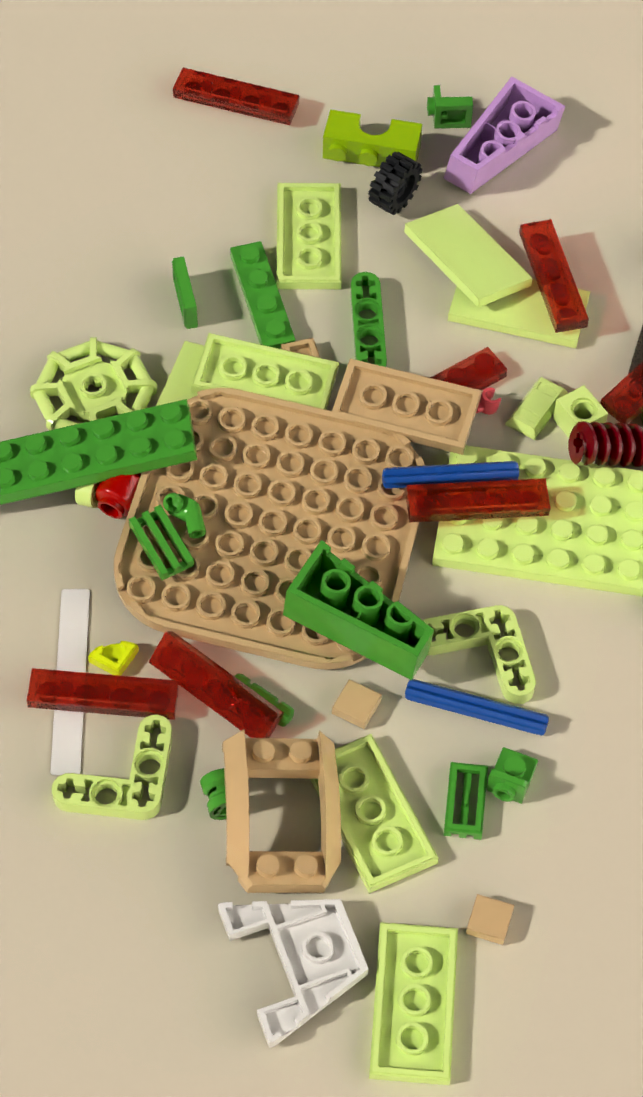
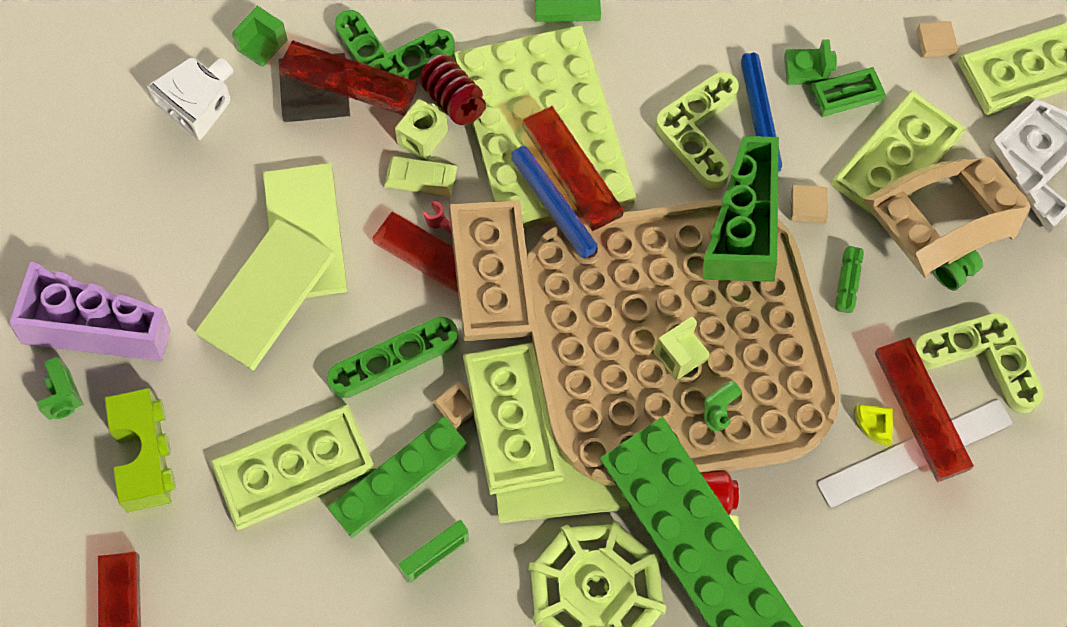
camera: 115 degrees left, 10 degrees up
(149, 520) = (777, 392): bright green tile -> none
(215, 686) = (863, 318): clear red plate -> none
(251, 504) = (681, 349): none -> yellowish green panel
(395, 183) = (201, 393): black tyre -> none
(553, 276) = (264, 202): clear red plate -> none

